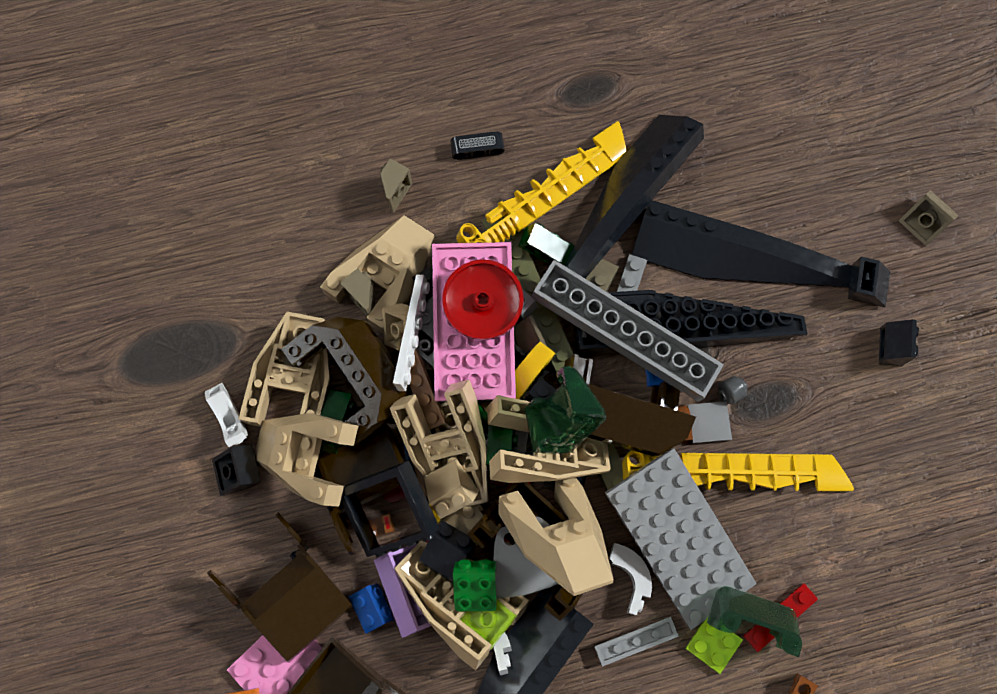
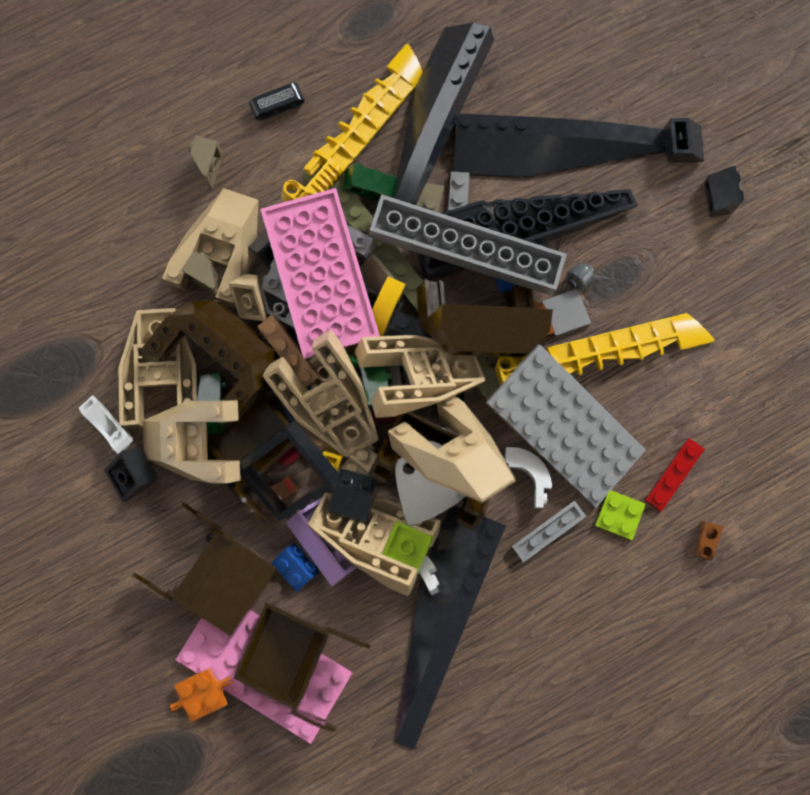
camera: 15 degrees left, 5 degrees up
(410, 337) = (264, 305): white plate -> none
(449, 489) = (339, 437): tan slope -> none
(475, 585) = (387, 519): green bracket -> none
(482, 299) = (324, 250): red dish -> none
(566, 417) = (431, 341): clear green windscreen -> none
(734, 605) = (628, 475): clear green windscreen -> none
(928, 218) = (724, 65): dark tan slope -> none

